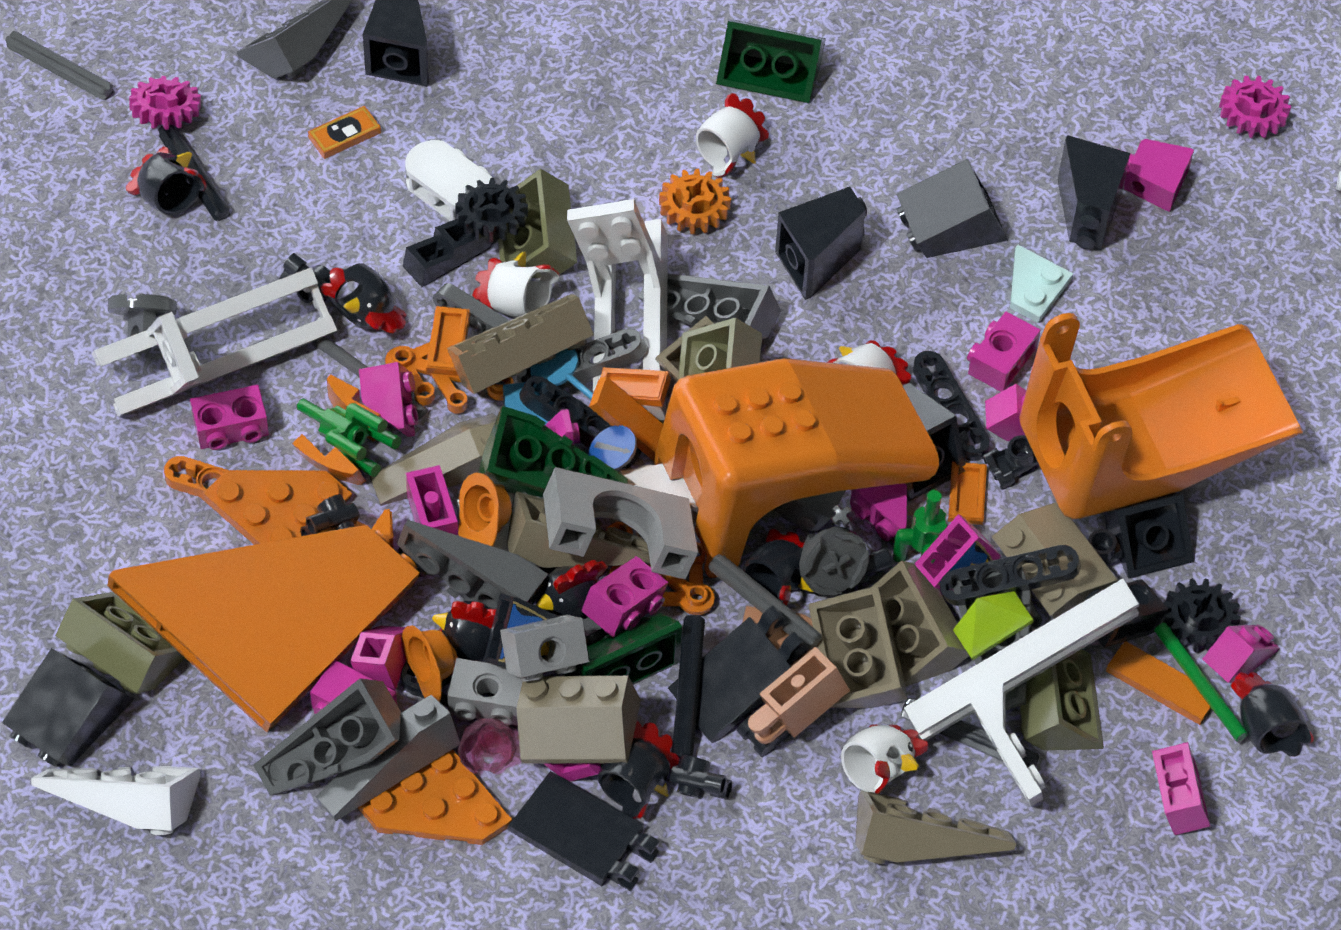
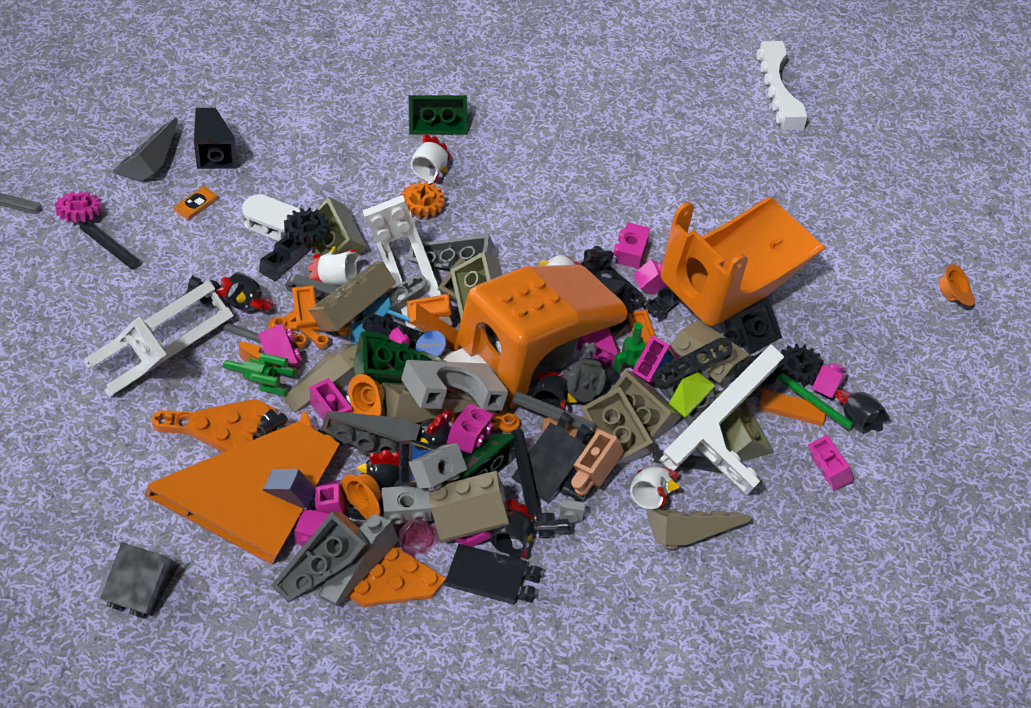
camera: 20 degrees left, 5 degrees down
(118, 641) = (159, 531): olive slope -> none
(141, 311) = (106, 330): dark grey tile -> none
(146, 800) = (210, 624): white wedge -> none
(163, 175) = (93, 248): black piece -> none
(227, 414) = (183, 381): dark pink brick -> none
(321, 624) = (290, 486): none -> slope
(333, 462) = (260, 392): orange slope -> none
(740, 764) = (572, 510): none -> light grey plate
(820, 238) = (505, 204): black slope -> none
(931, 362) = (597, 258): none -> black plate
(950, 212) = (573, 175): slope -> none
(1036, 284) = (634, 205): light aqua wing -> none
(1090, 189) = (647, 147): black slope -> none
(1158, 172) = (677, 132): dark pink torso -> none
(1255, 106) = (717, 88): dark pink gear -> none

